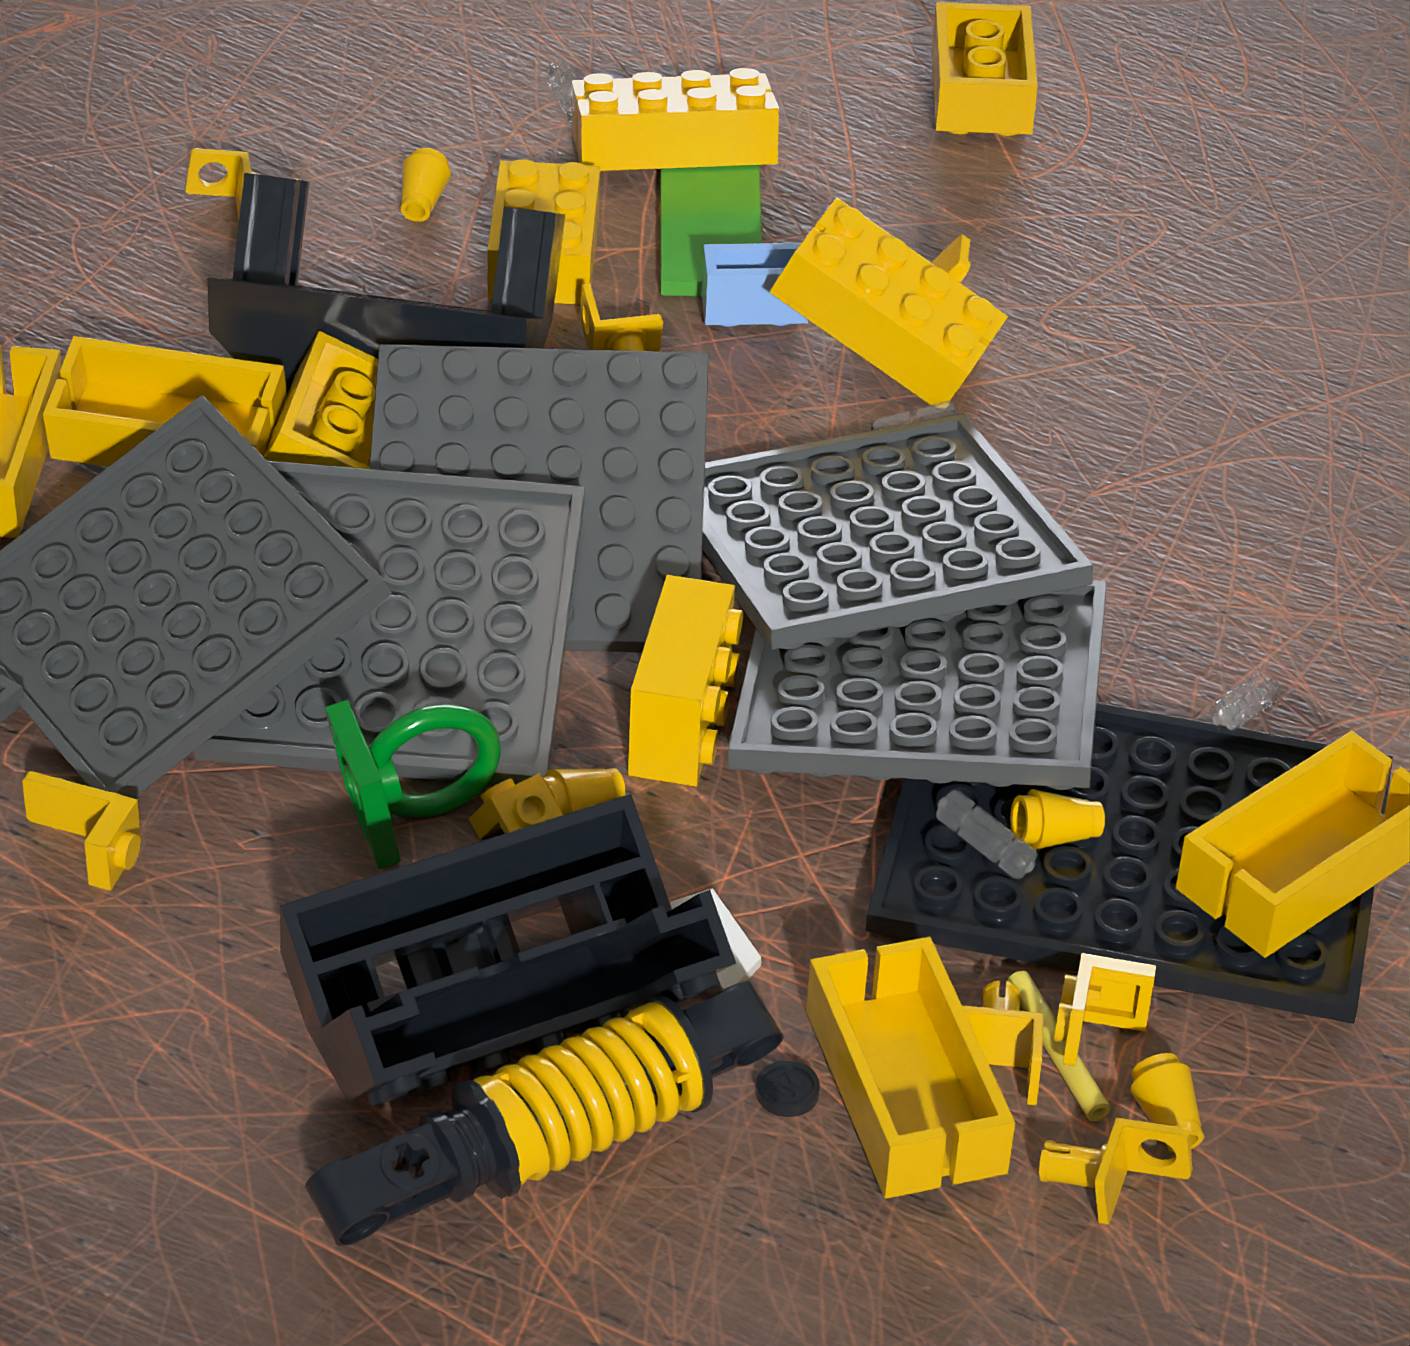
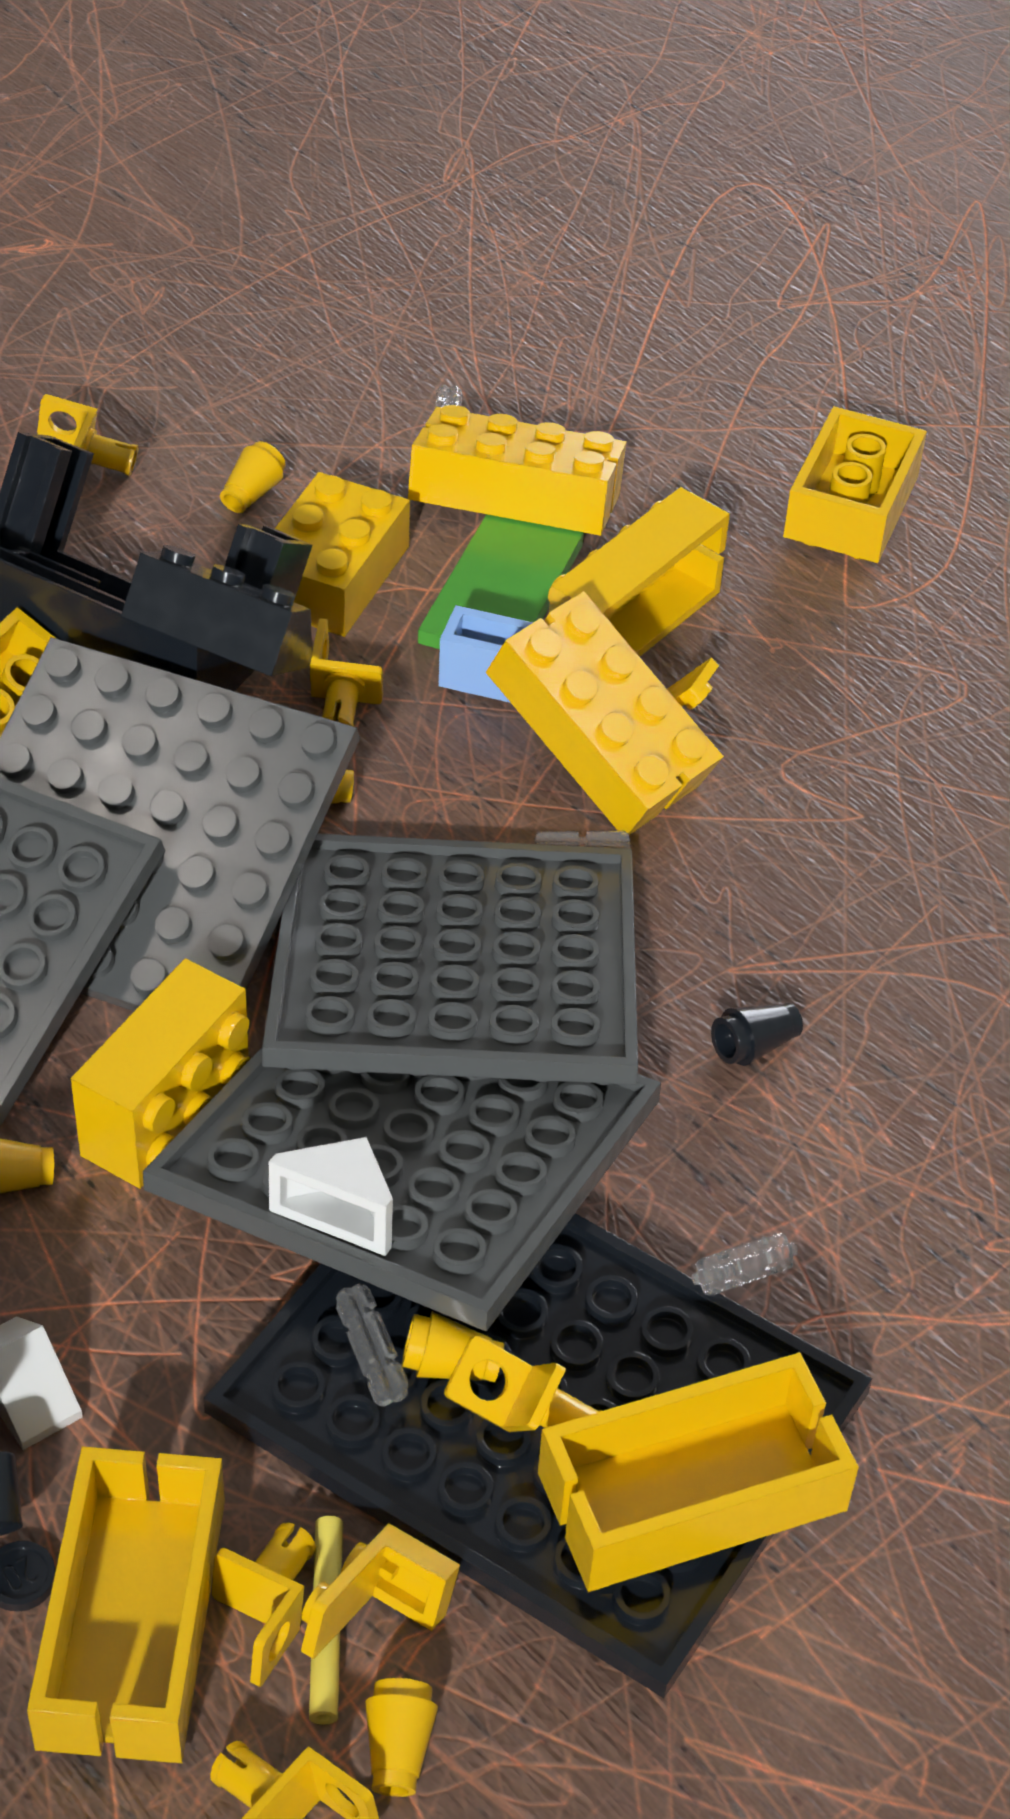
camera: 20 degrees right, 5 degrees up
(529, 282) = (220, 612): none -> black slope
(854, 167) = (653, 569): none -> yellow piece
(918, 713) = (335, 1192): none -> white slope
(1137, 832) = (528, 1394): none -> yellow bracket
(1147, 531) = (753, 1031): none -> black cone

